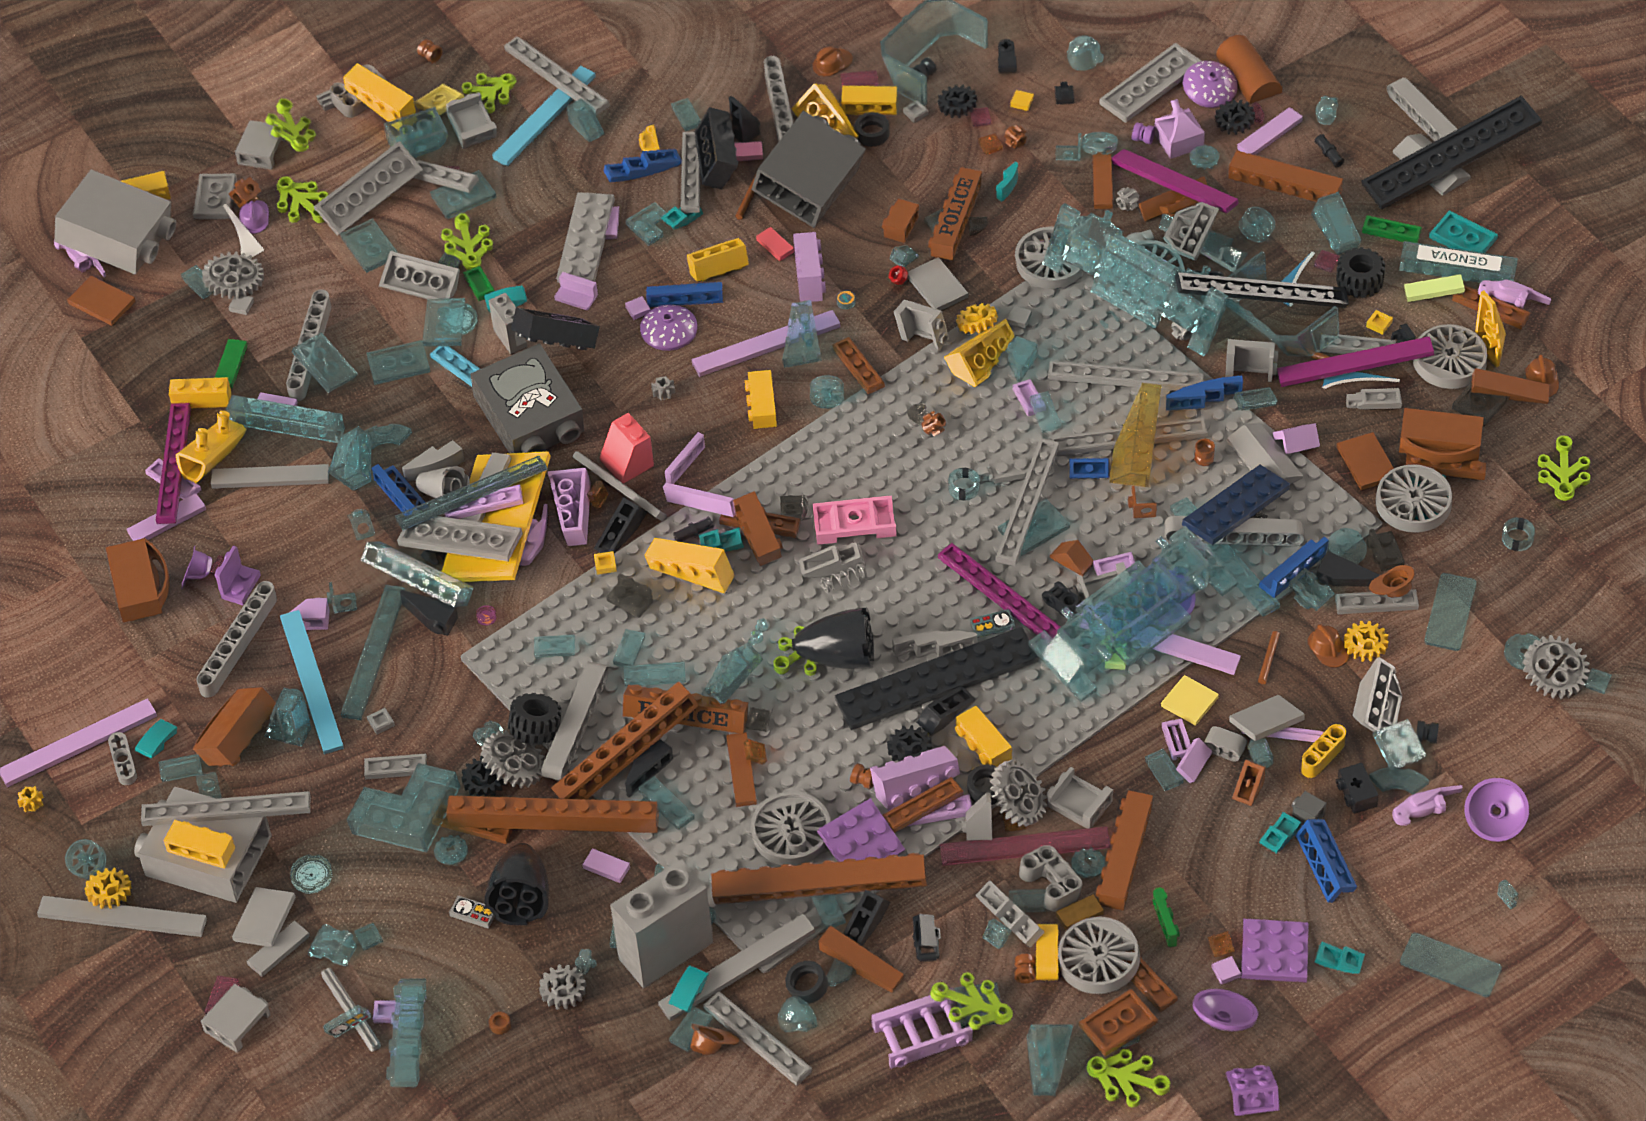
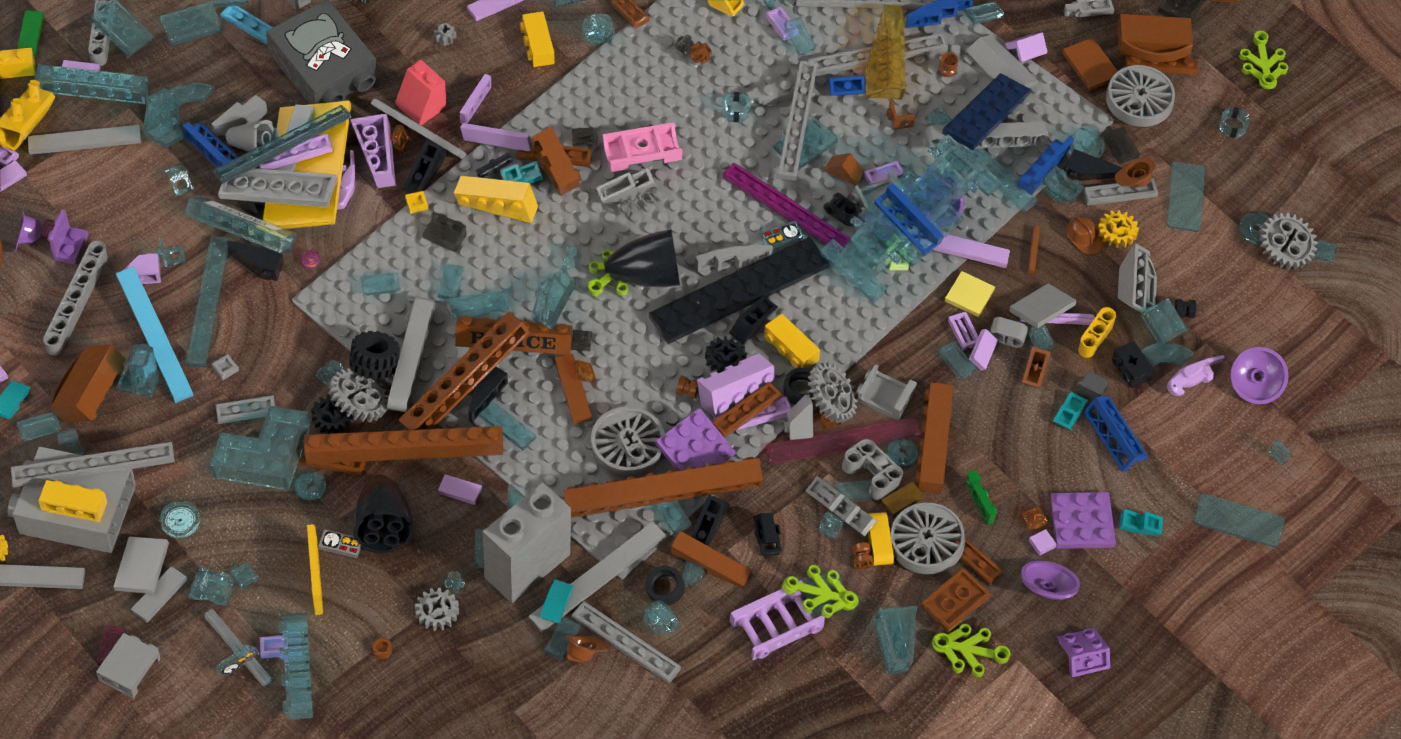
camera: 15 degrees left, 5 degrees up
(440, 935) = (315, 569): none -> yellow tile
(1130, 608) = (915, 216): none -> blue fence

